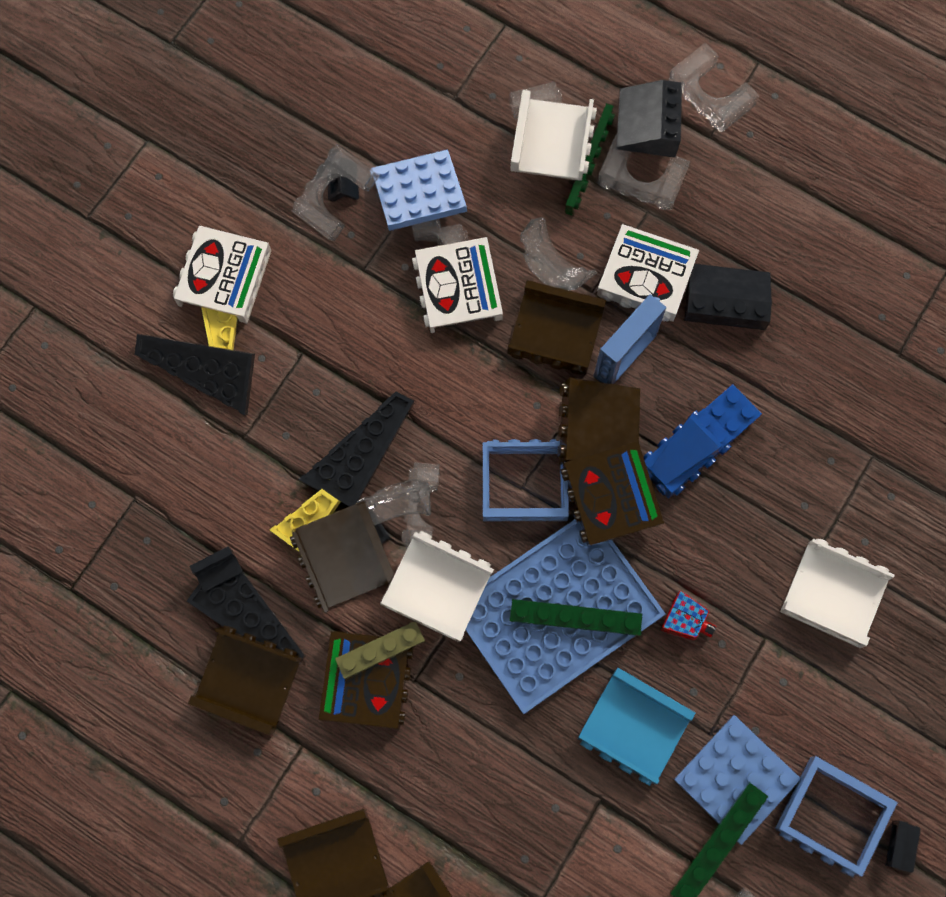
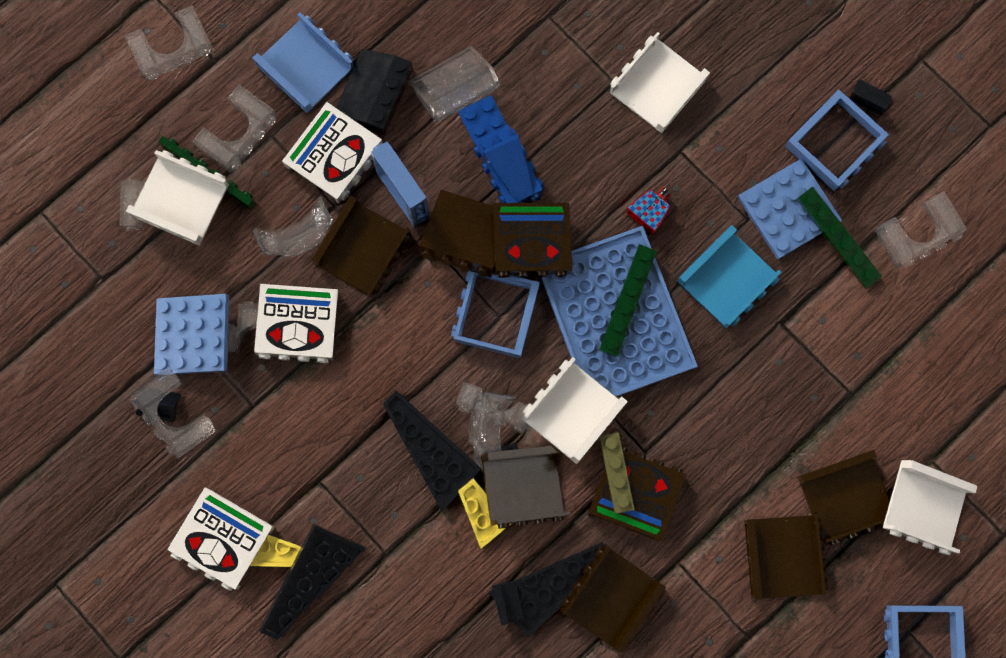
camera: 80 degrees left, 5 degrees up
(650, 118) = (185, 106): black slope -> none
(734, 221) = (305, 63): none -> medium blue panel
(761, 373) = (454, 83): none -> clear slope

